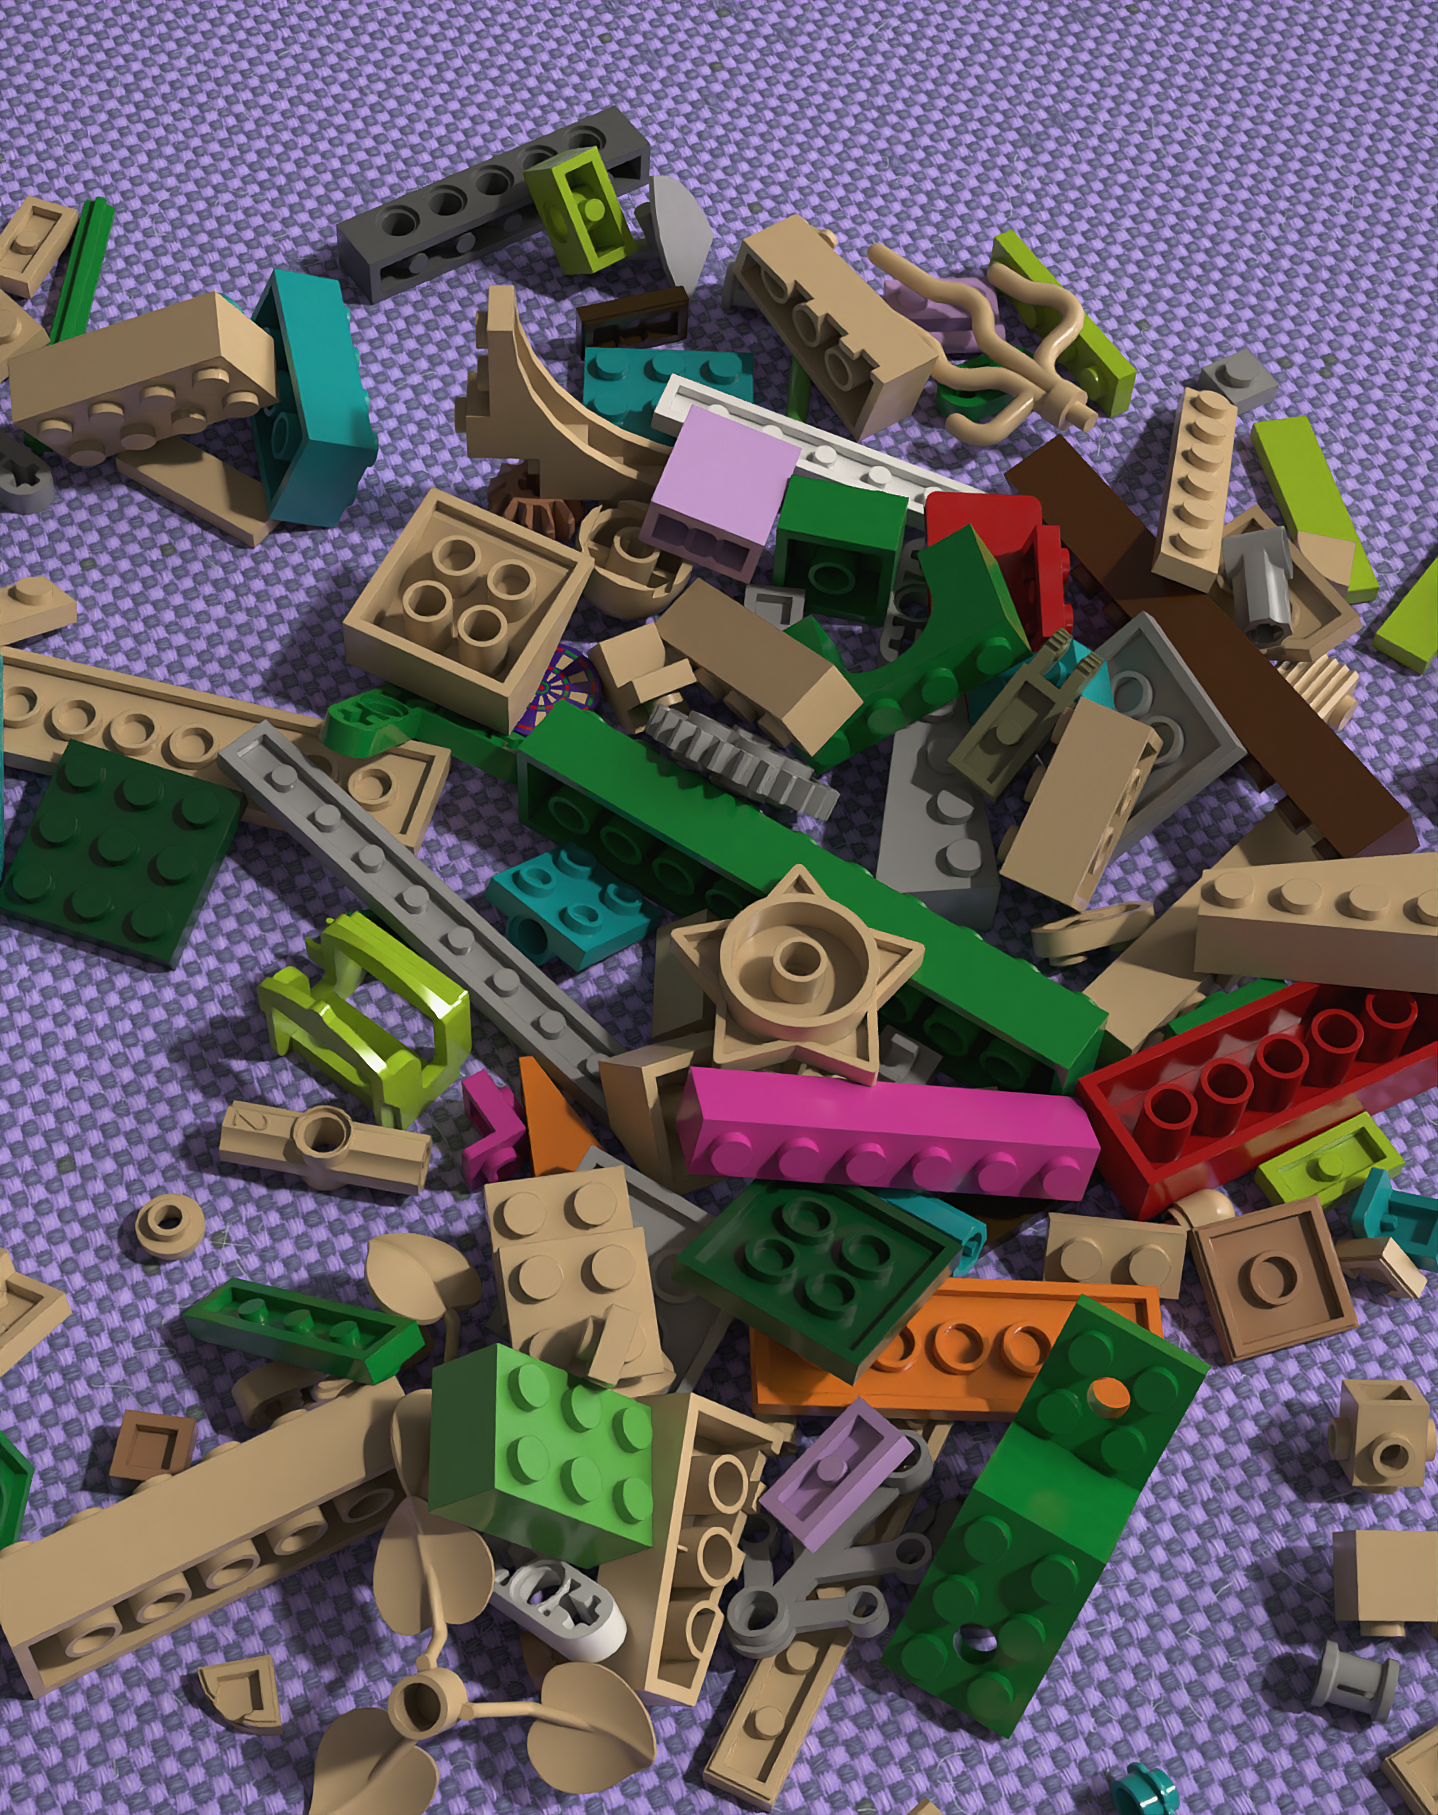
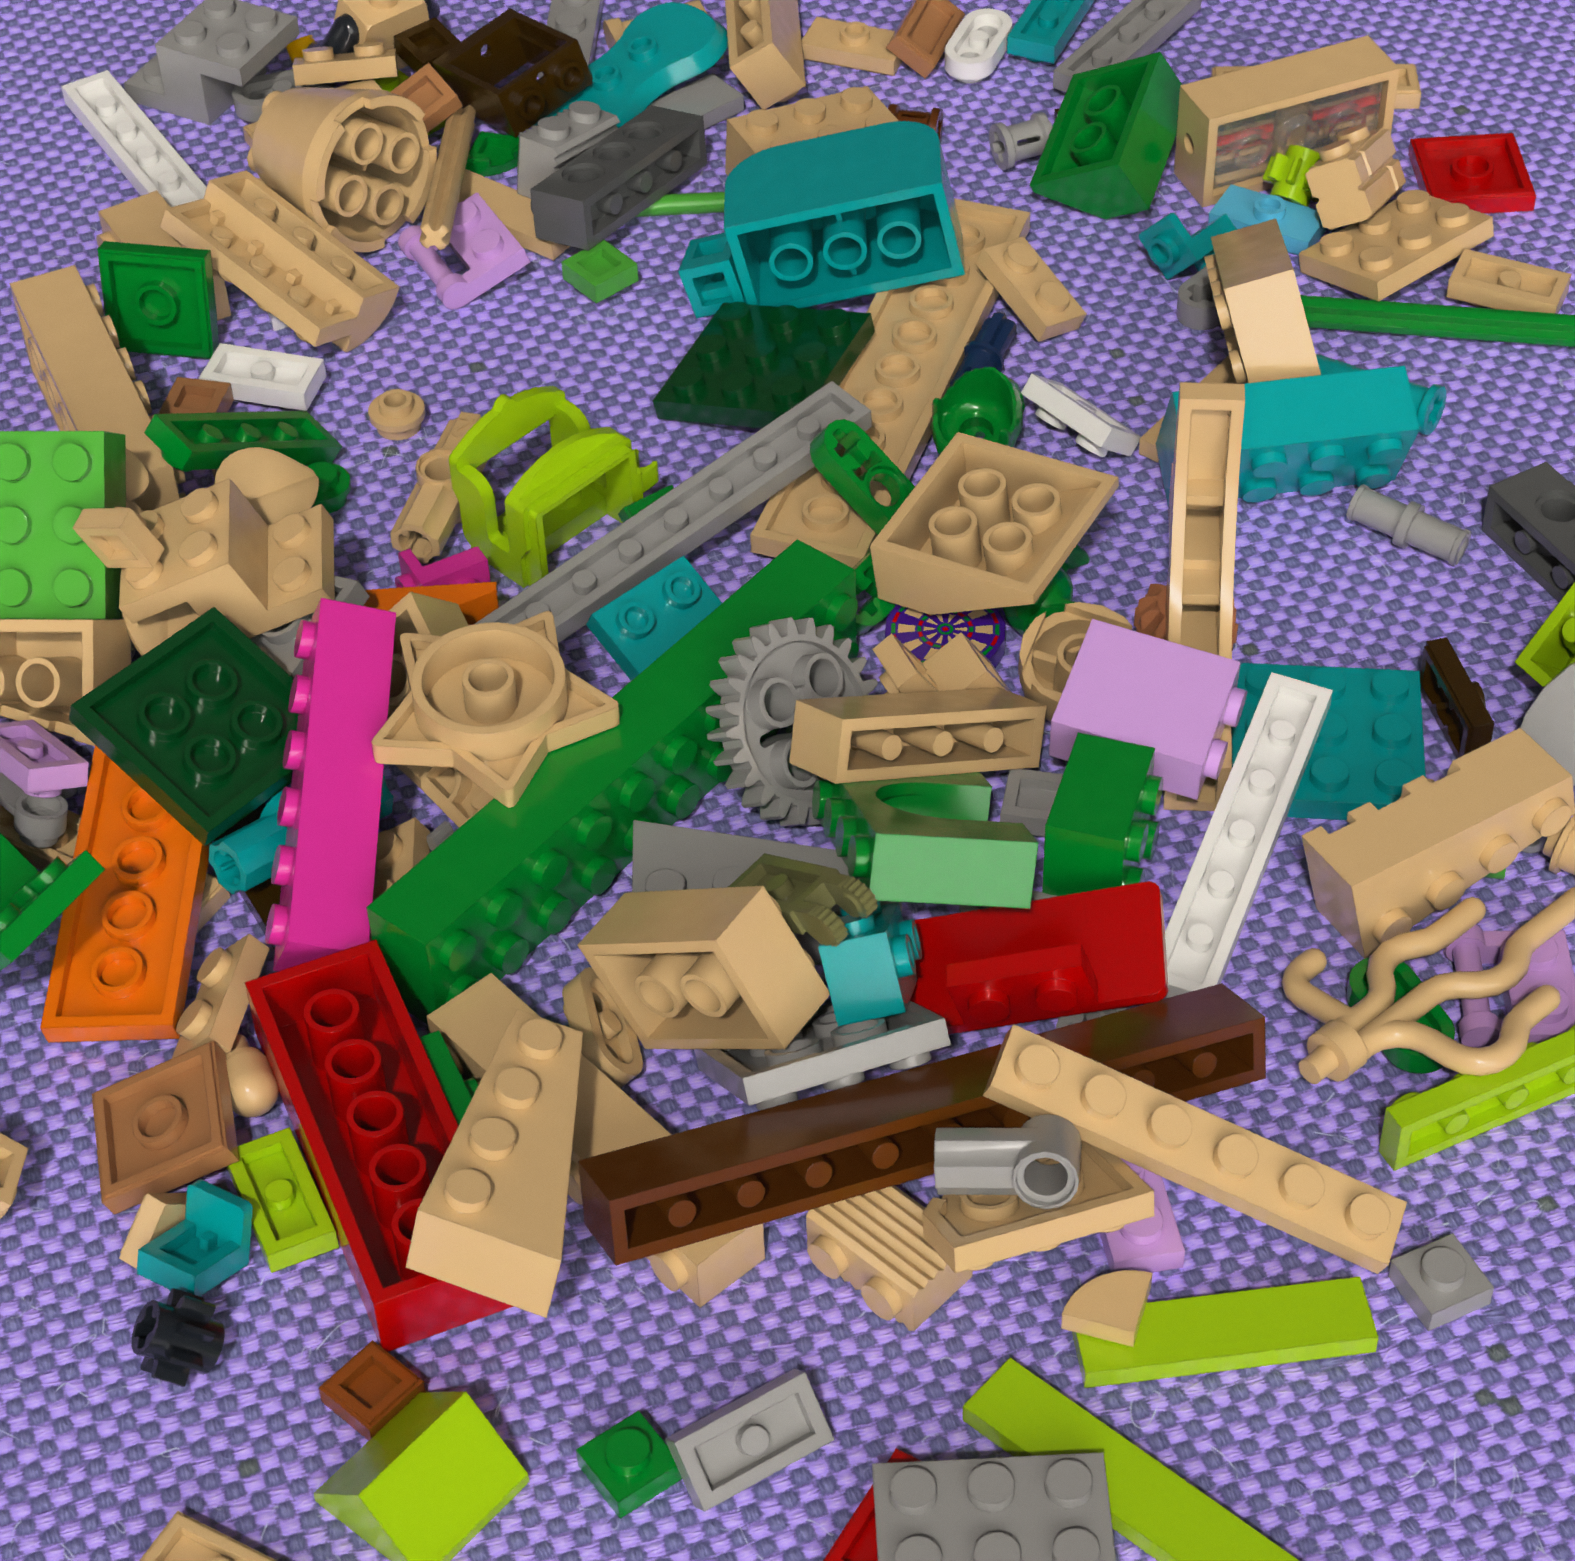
camera: 100 degrees right, 10 degrees down
(98, 1383) = (267, 375): none -> white plate
(111, 656) = (988, 346): none -> dark blue axle
(232, 642) = (979, 405): none -> green piece
(236, 568) = (1064, 407): none -> white plate
(307, 1276) = (333, 485): none -> green plate
(389, 339) = (1408, 524): none -> light grey pin

